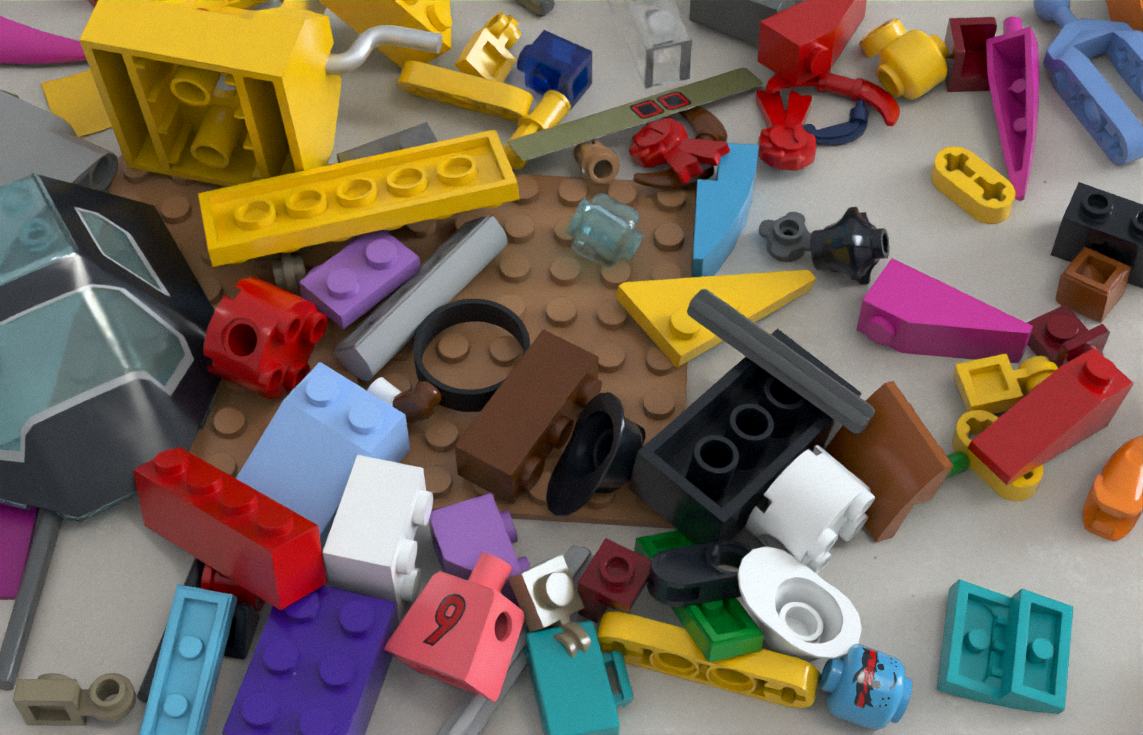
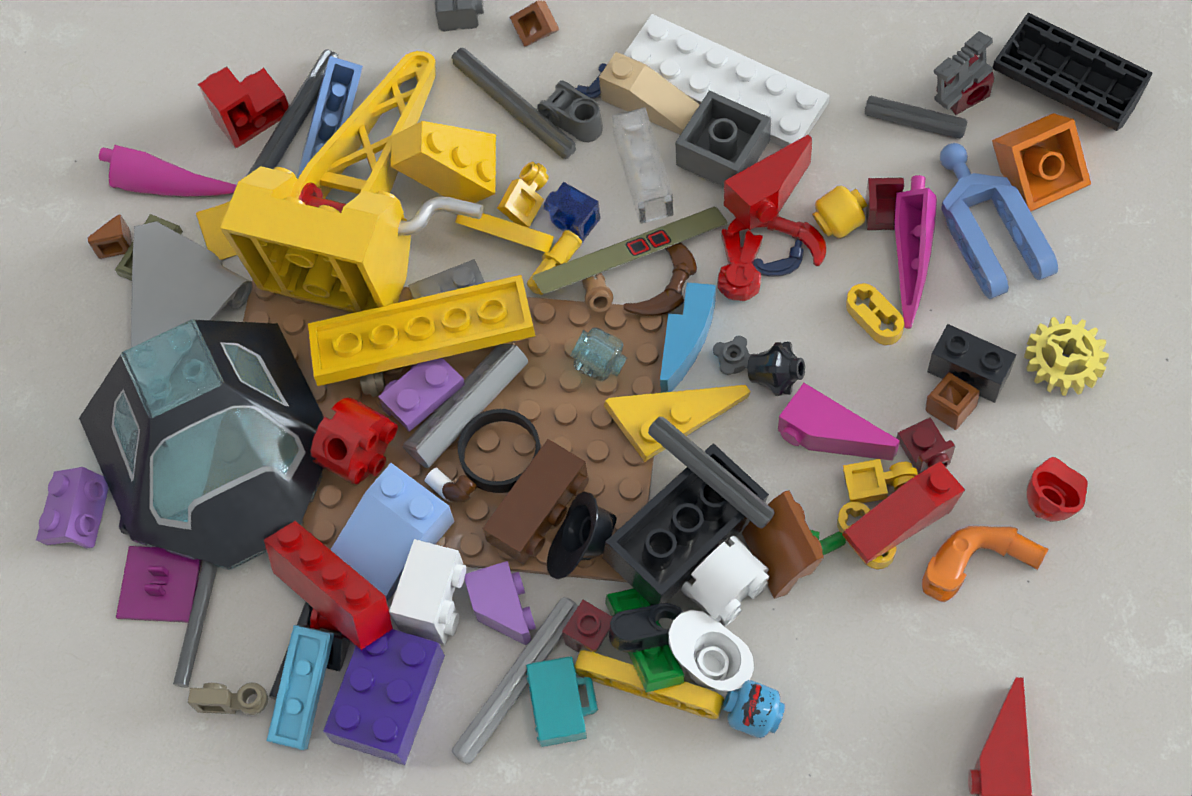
camera: 10 degrees right, 10 degrees up
(462, 629) = (483, 662): coral torso -> none
(548, 599) = (541, 640): dark tan plate -> none
(669, 143) = (649, 278): red piece -> none
(881, 37) = (819, 186): yellow tile -> none
(1006, 648) = (855, 681): teal slope -> none

